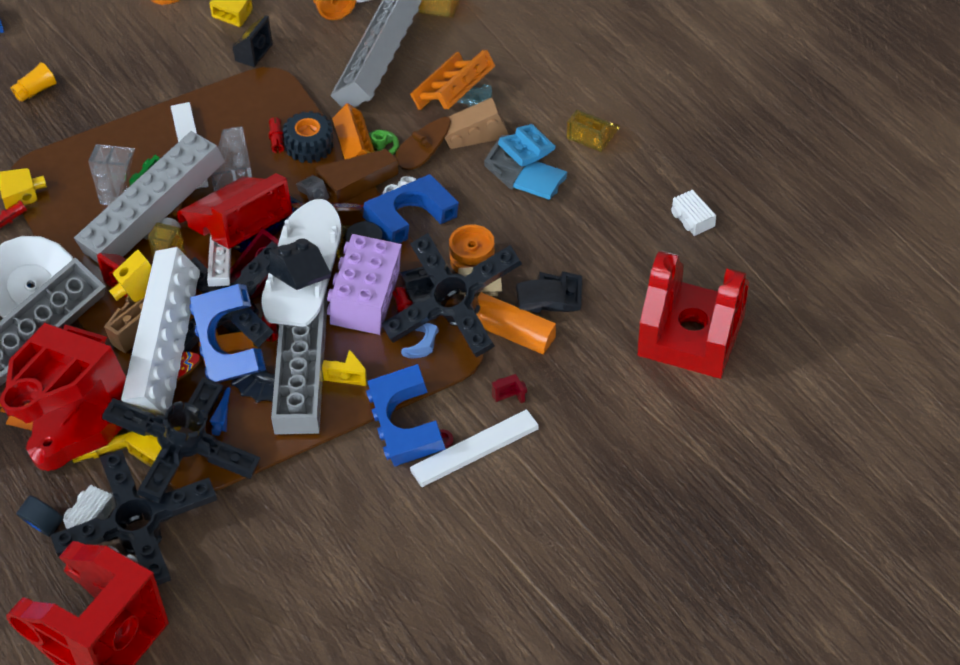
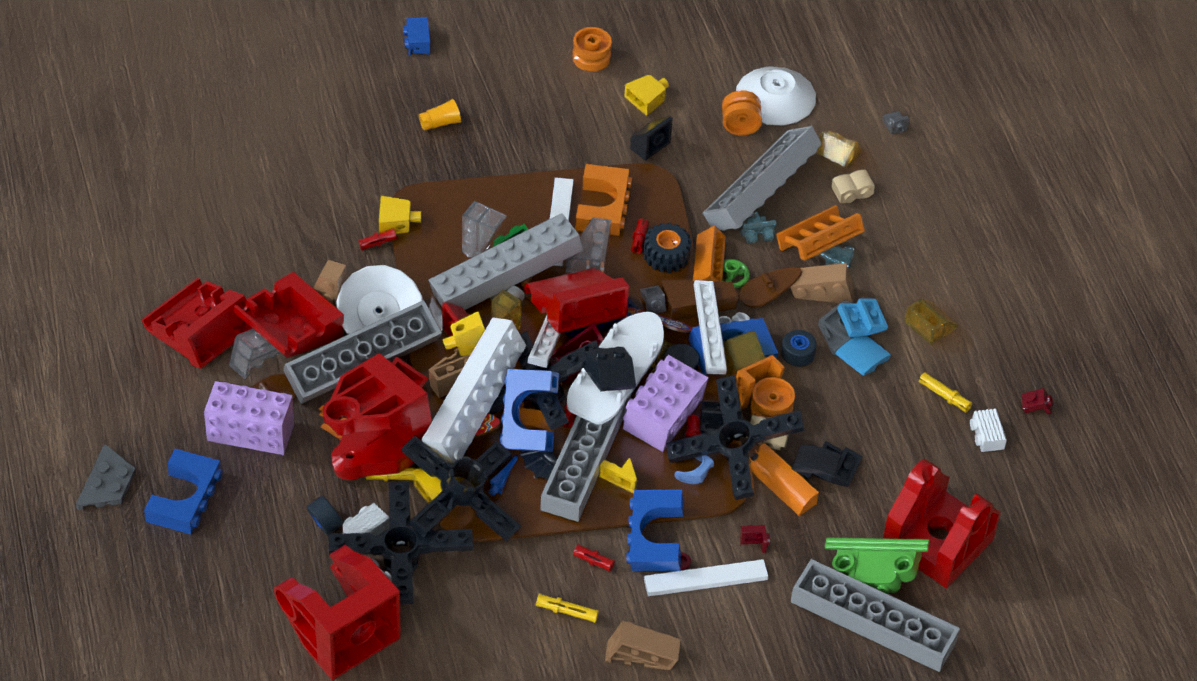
camera: 15 degrees right, 0 degrees up
(230, 93) = (610, 181): none -> orange arch
(345, 528) = (588, 613): none -> yellow pin
(365, 467) = (606, 563): none -> red pin
(382, 197) = (710, 327): none -> white tile
(388, 92) = (757, 226): none -> clear light blue hips
(425, 215) = (742, 352): none -> clear yellow slope
(437, 542) = (642, 645): none -> medium nougat wedge
(448, 223) = (753, 373): none -> orange panel
(465, 32) = (853, 186): none -> tan brick
(475, 192) = (798, 348): none -> black wheel
(642, 192) = (942, 390): none -> yellow pin
(645, 374) = (878, 561): none -> bright green brick
(665, 428) = (875, 615): none -> light grey brick
(726, 171) = (1037, 400): none -> dark red bracket

